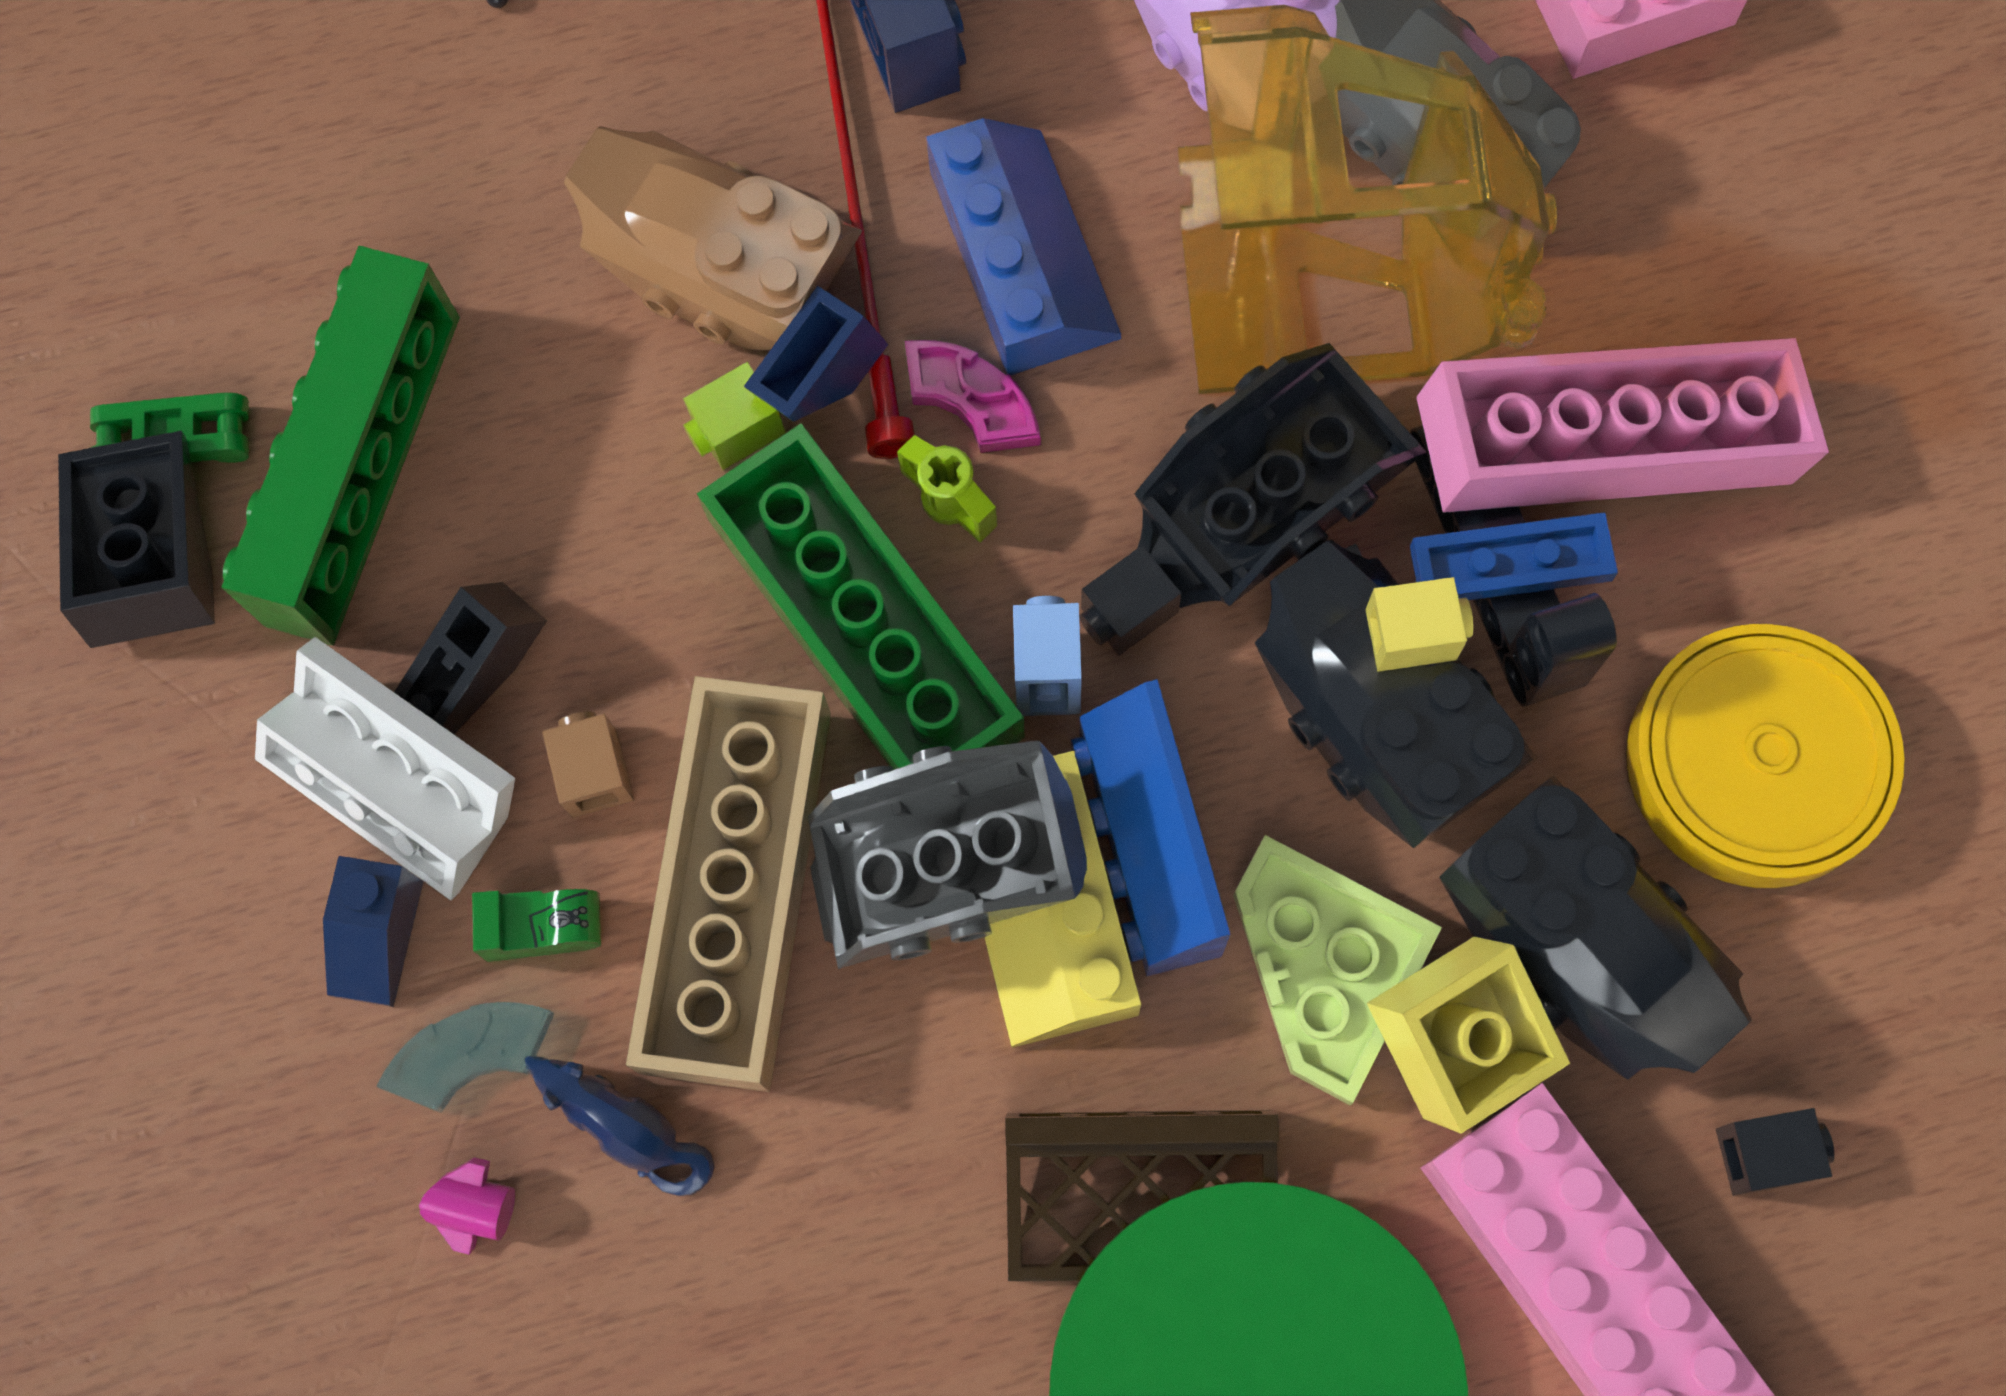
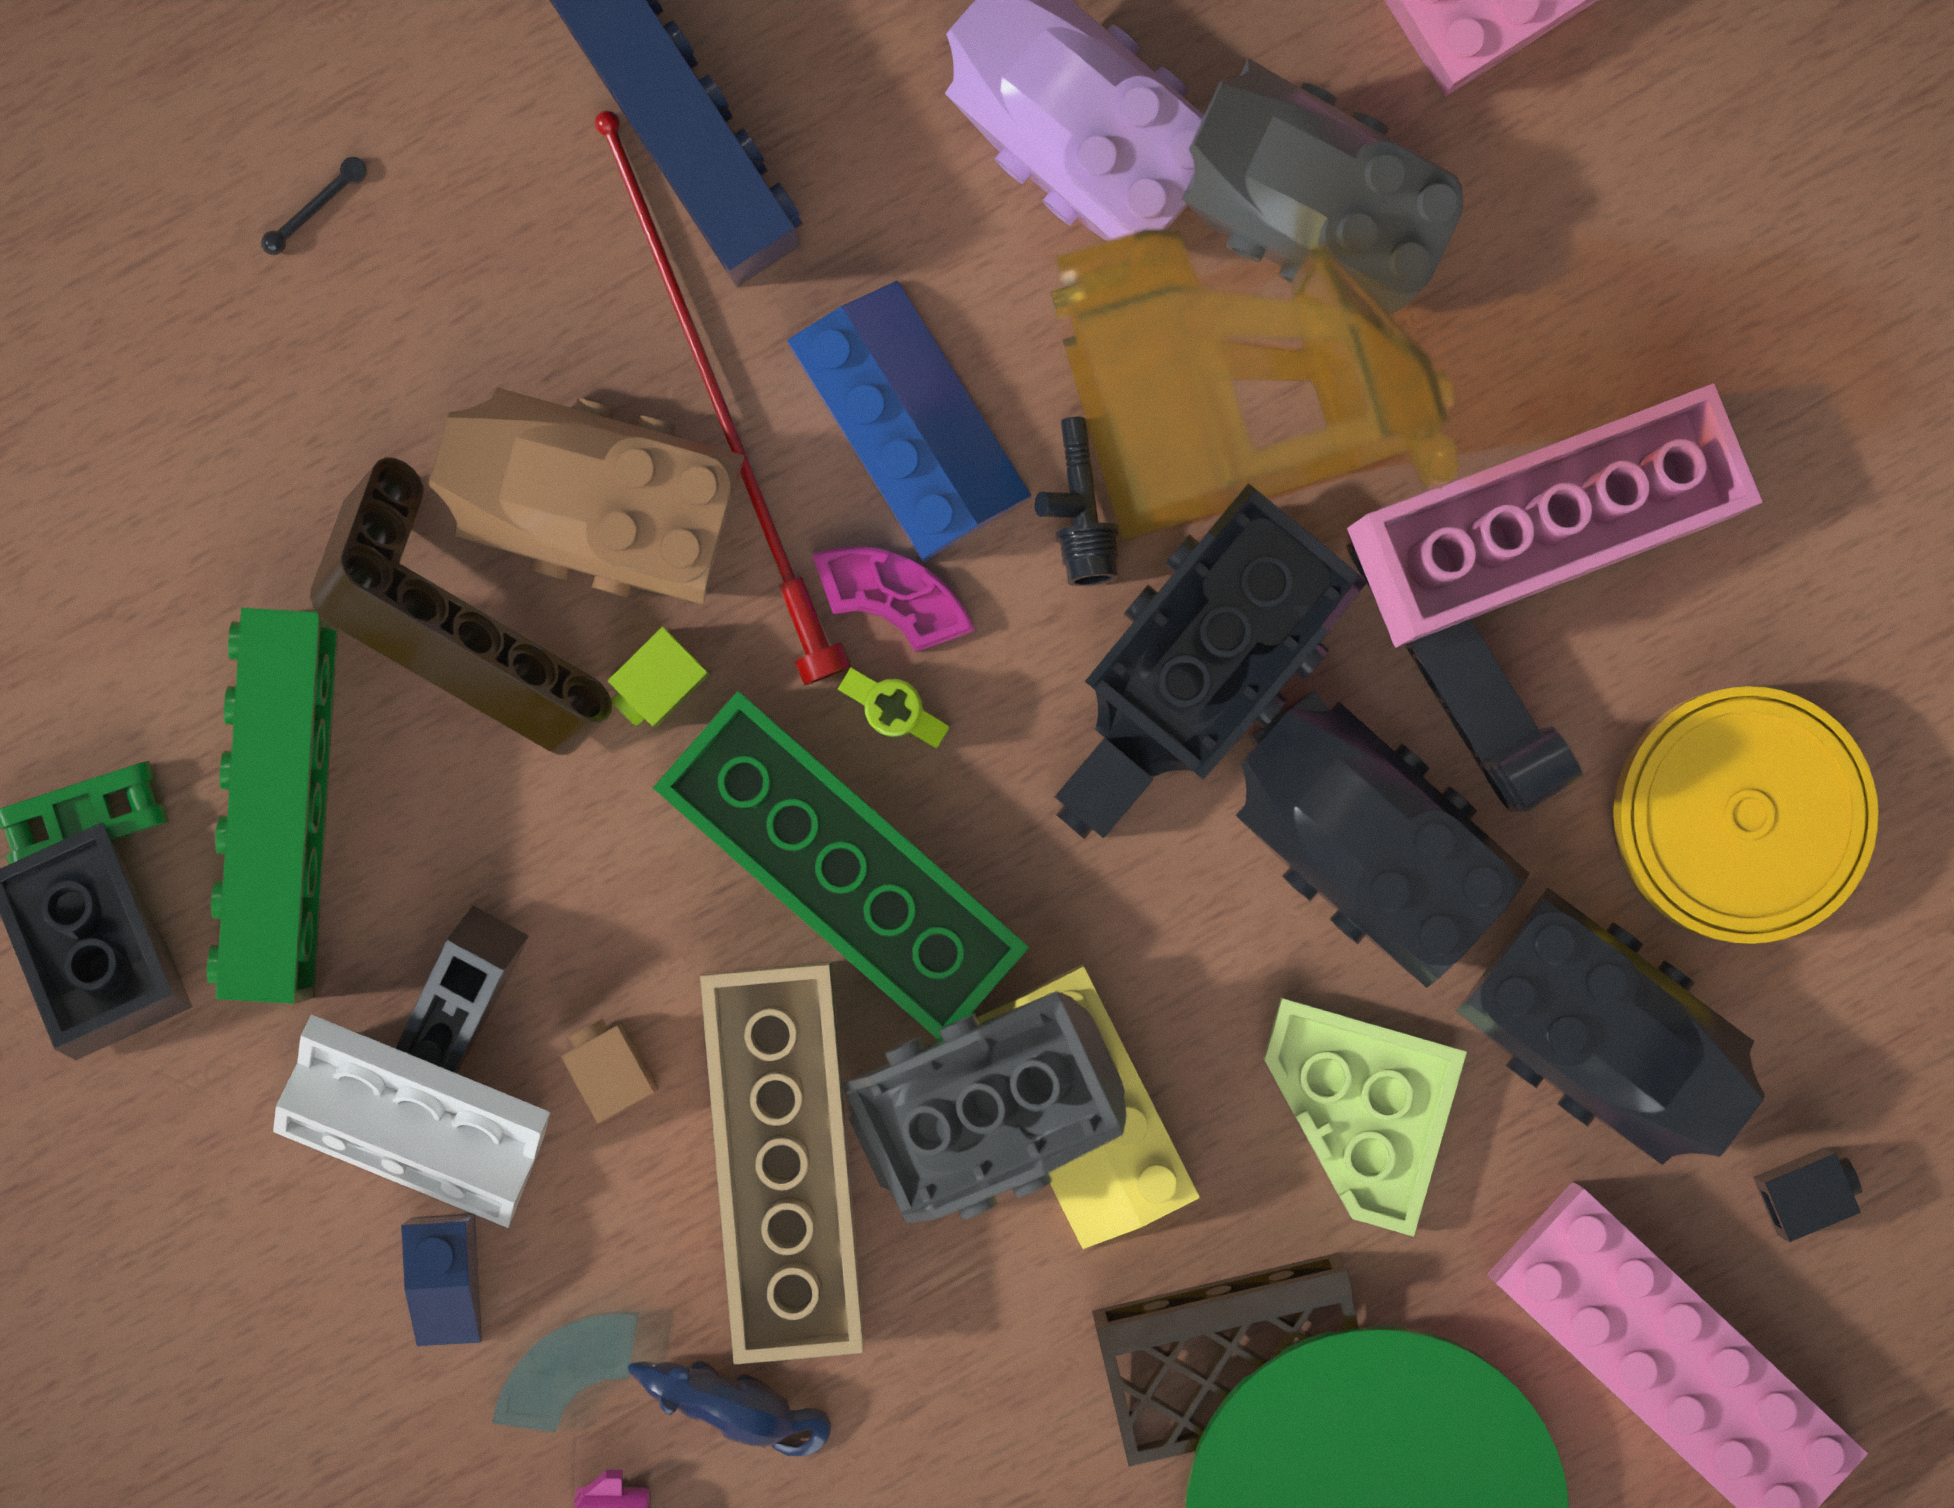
camera: 20 degrees left, 15 degrees up
(490, 270) = (438, 634): none -> dark brown beam
(535, 923) = (602, 1236): green leg -> none
(817, 358) = (733, 614): dark blue slope -> none
(1047, 657) = (1037, 874): light blue brick -> none
(1151, 832) = (1173, 1024): blue slope -> none
(1164, 373) = (1087, 546): none -> black piece
(1418, 624) = (1393, 790): light yellow brick -> none
(1468, 1033) = (1508, 1155): light yellow brick -> none
(1519, 556) = (1472, 681): blue plate -> none

